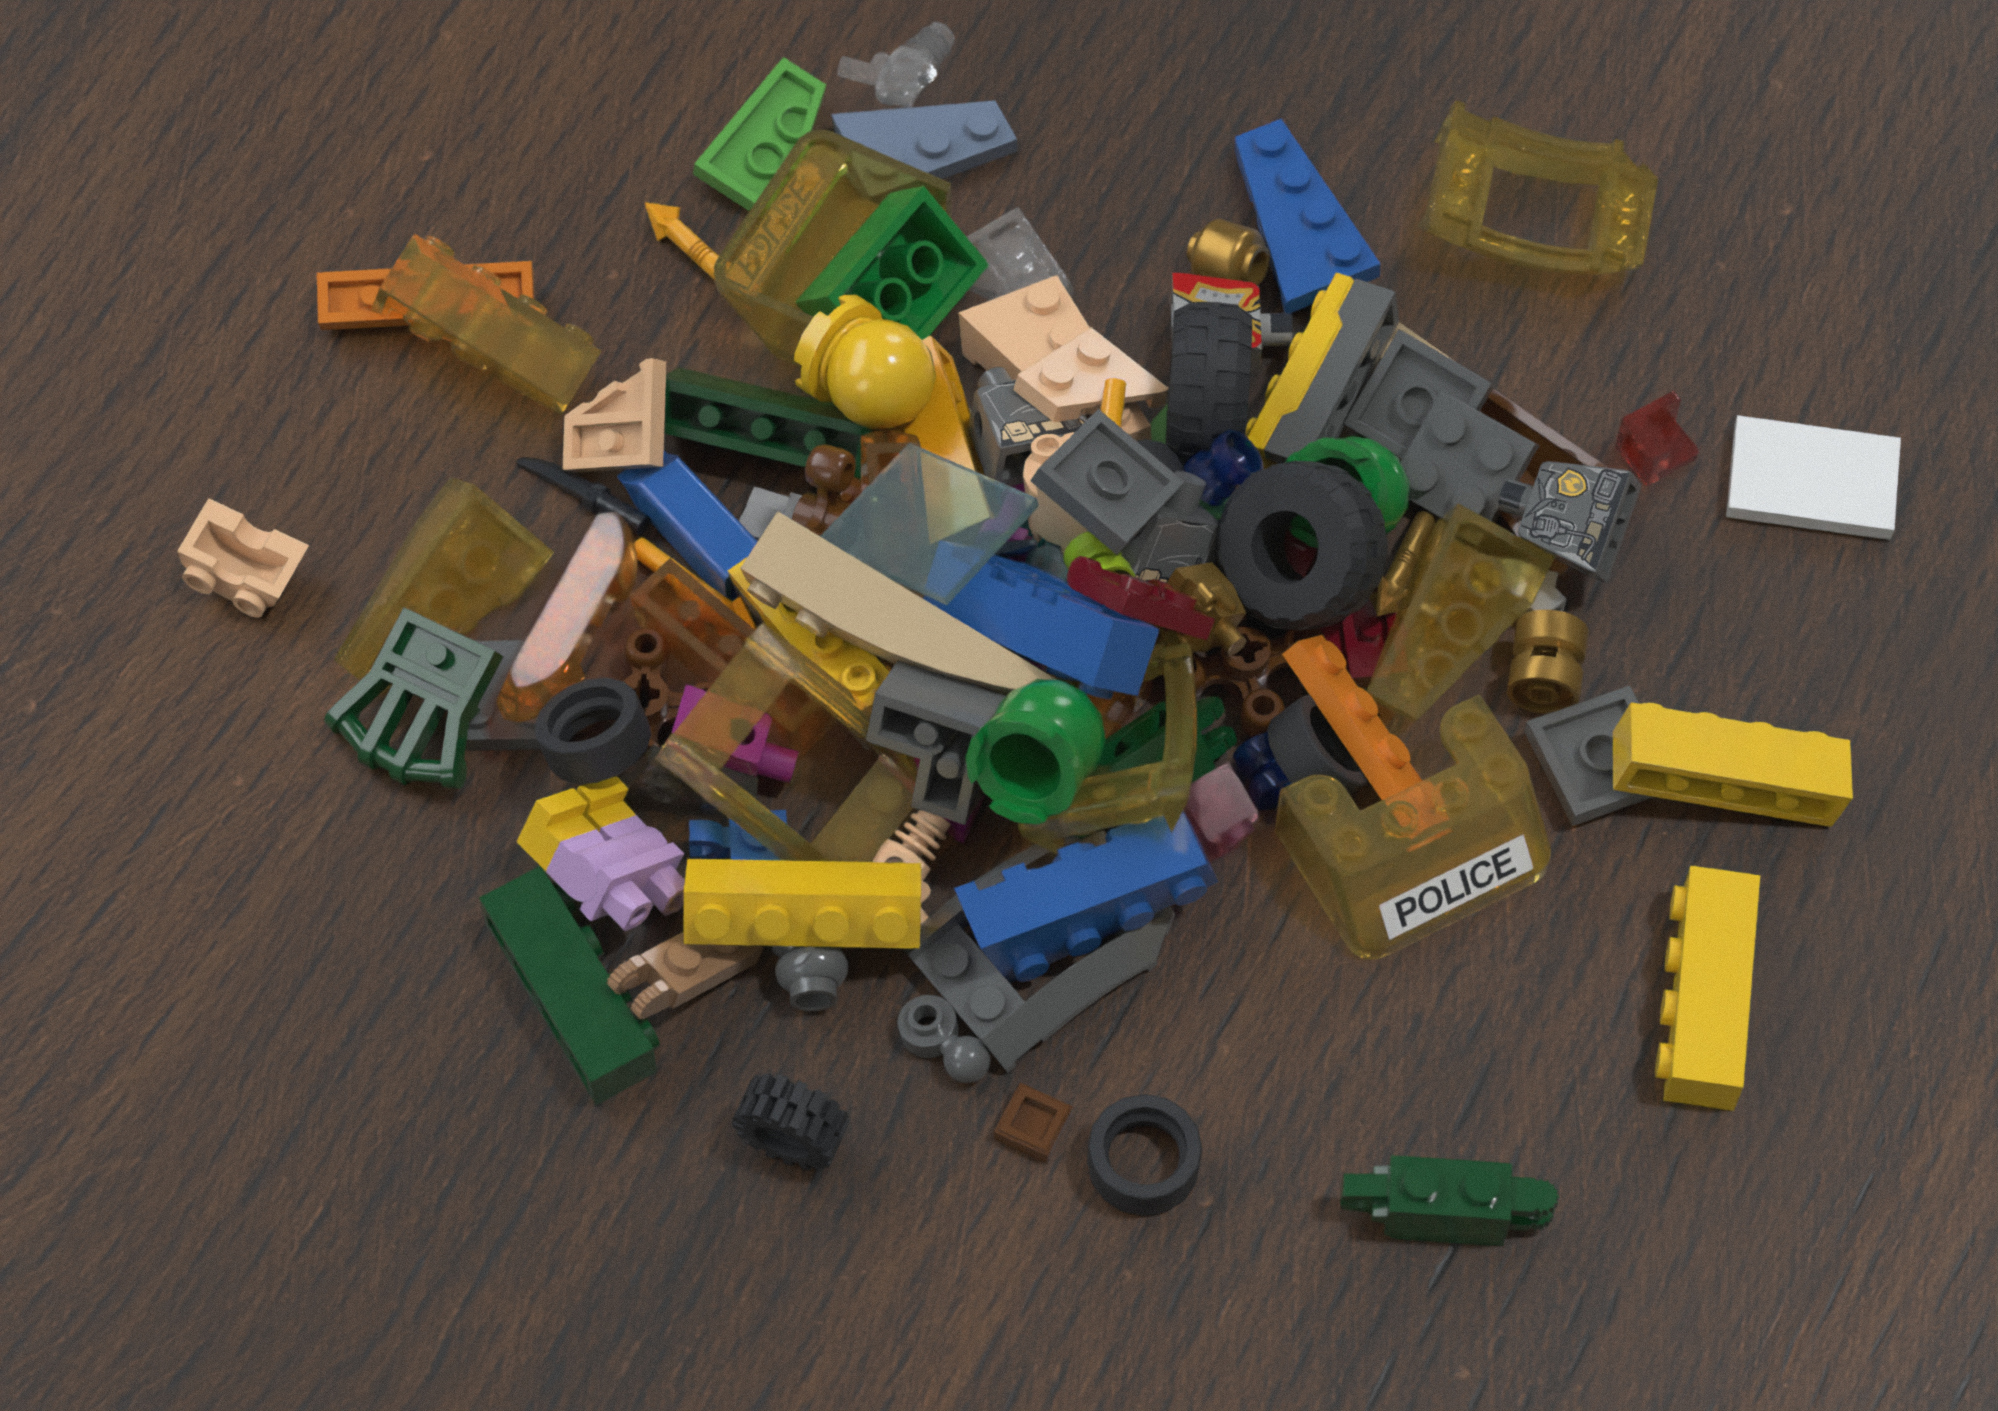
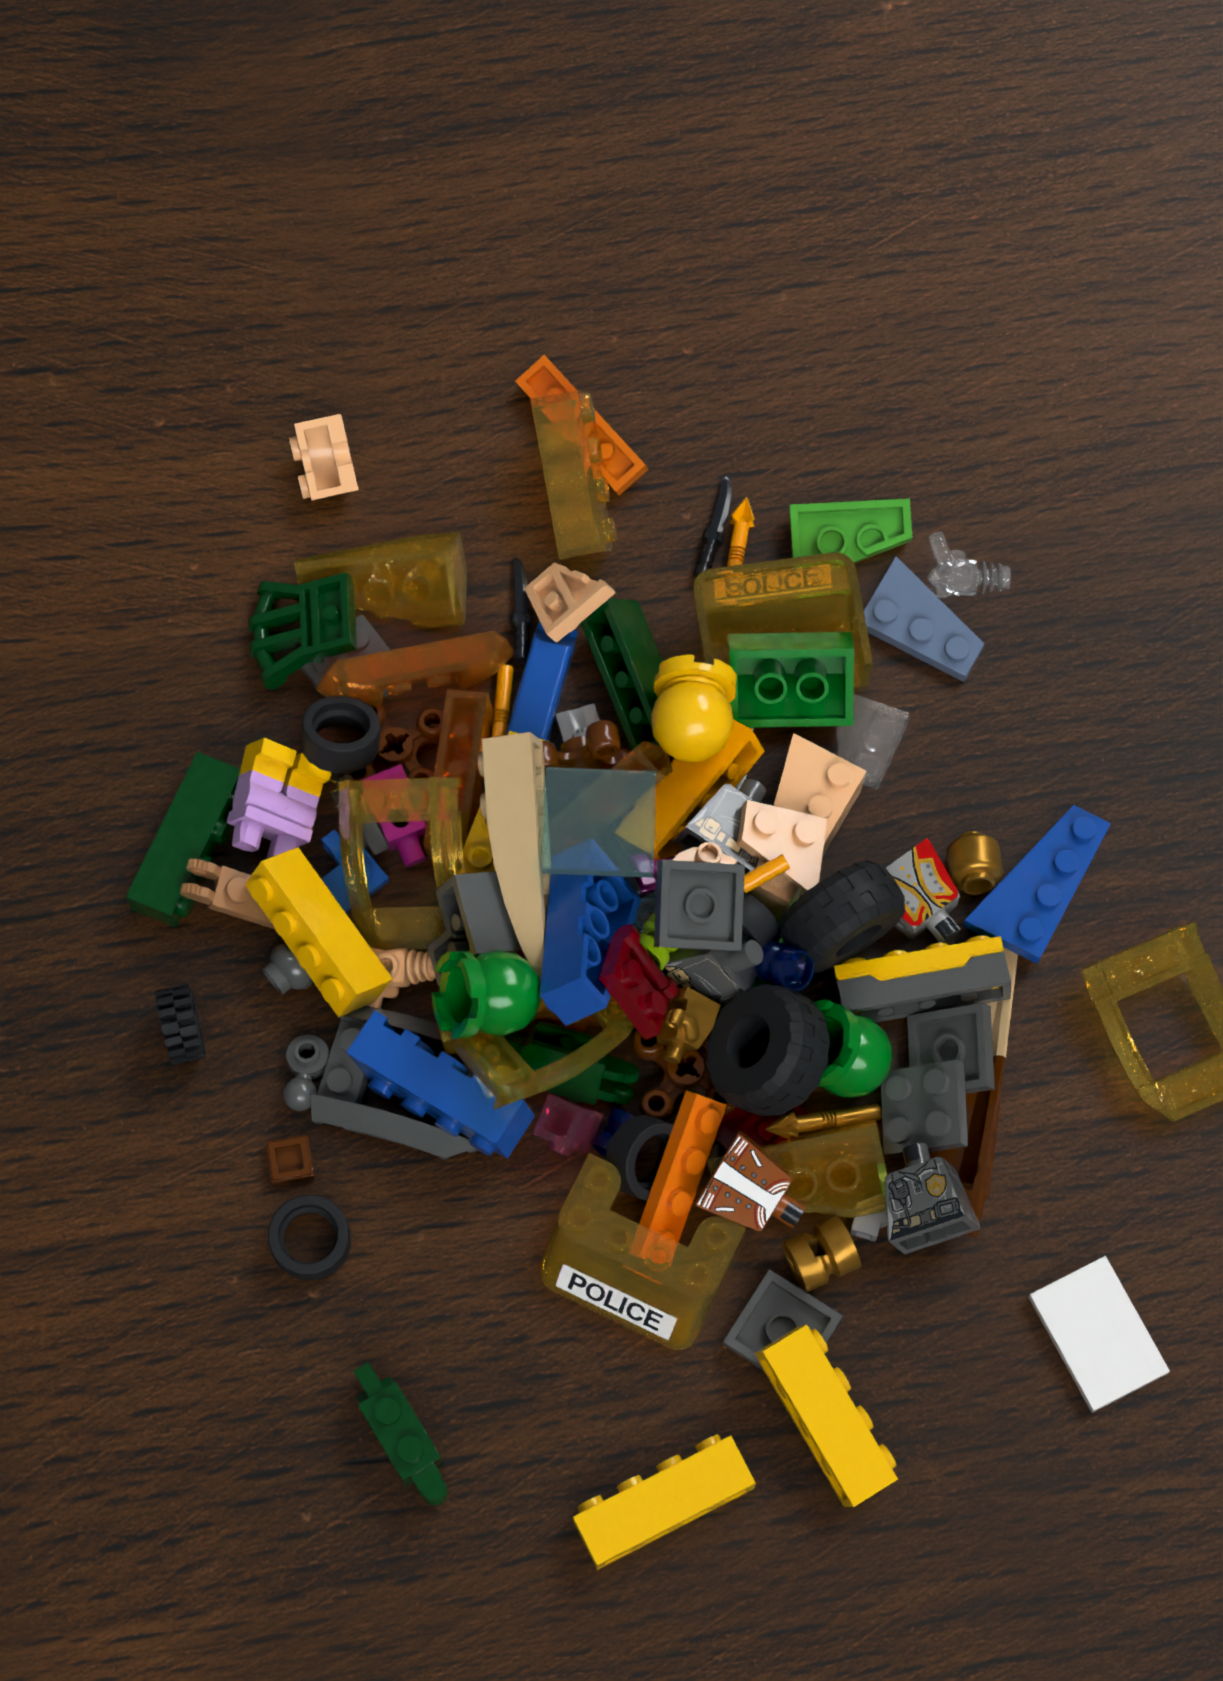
camera: 55 degrees right, 10 degrees up
(660, 261) = (714, 537): none -> black piece
(1432, 663) = (750, 1187): none -> torso
(1654, 440) = (1047, 1217): clear red panel -> none

